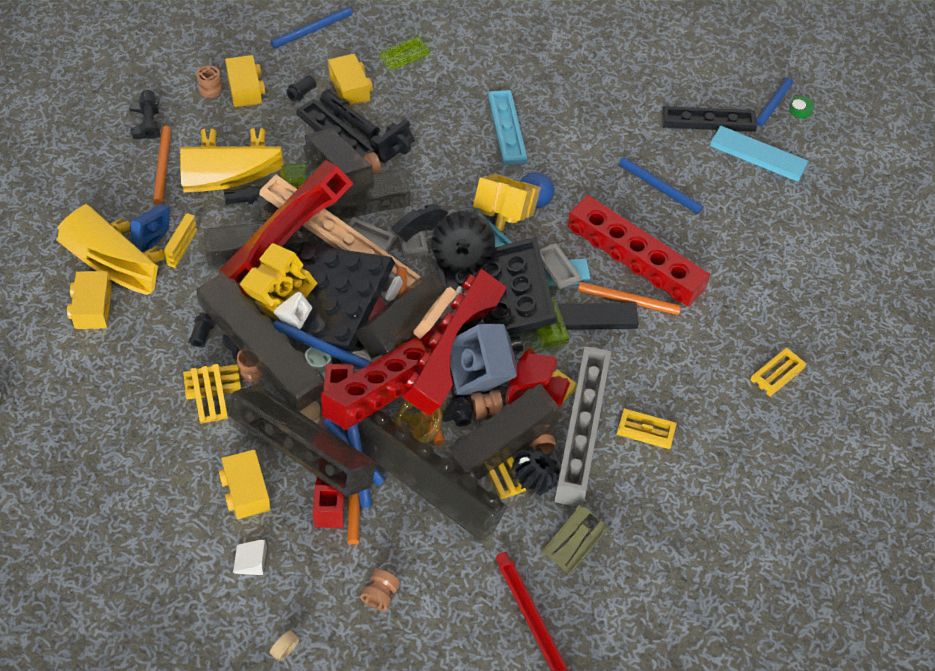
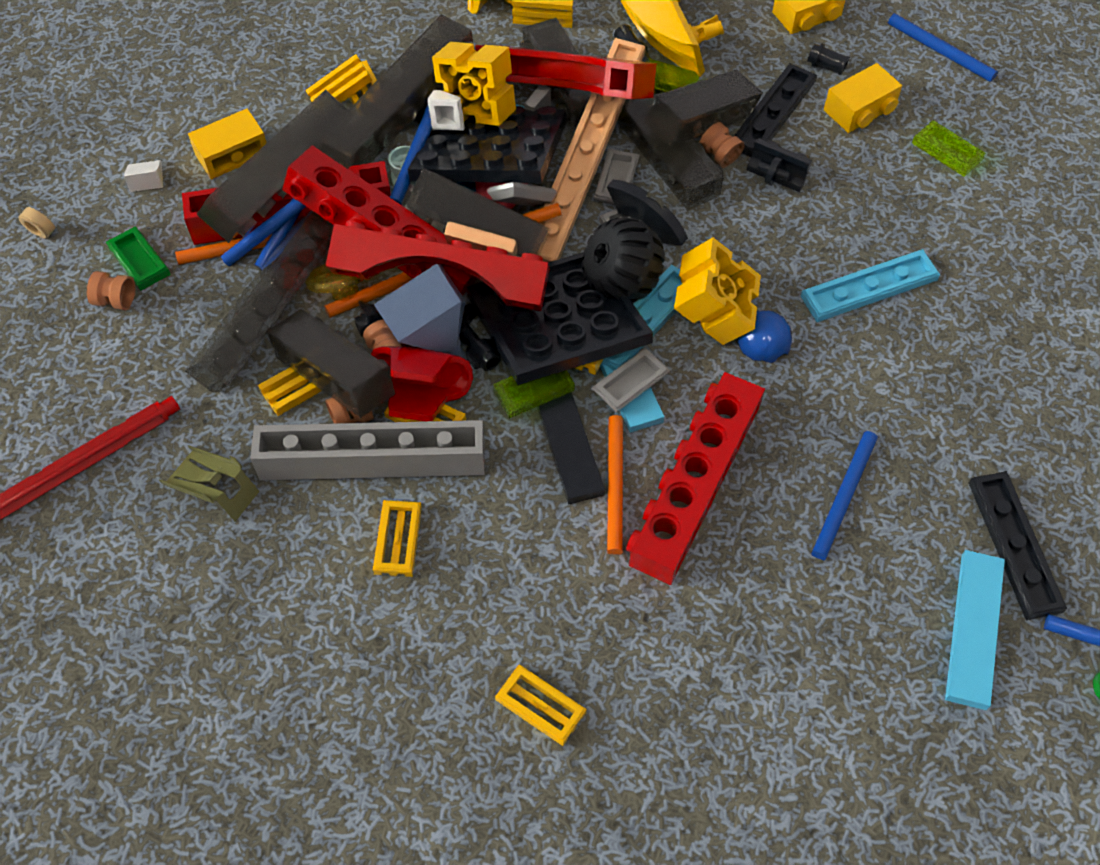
camera: 80 degrees right, 5 degrees up
(332, 100) = (812, 105): black pin -> none
(343, 572) = (138, 258): none -> green tile
(535, 471) = (298, 399): black gear -> none

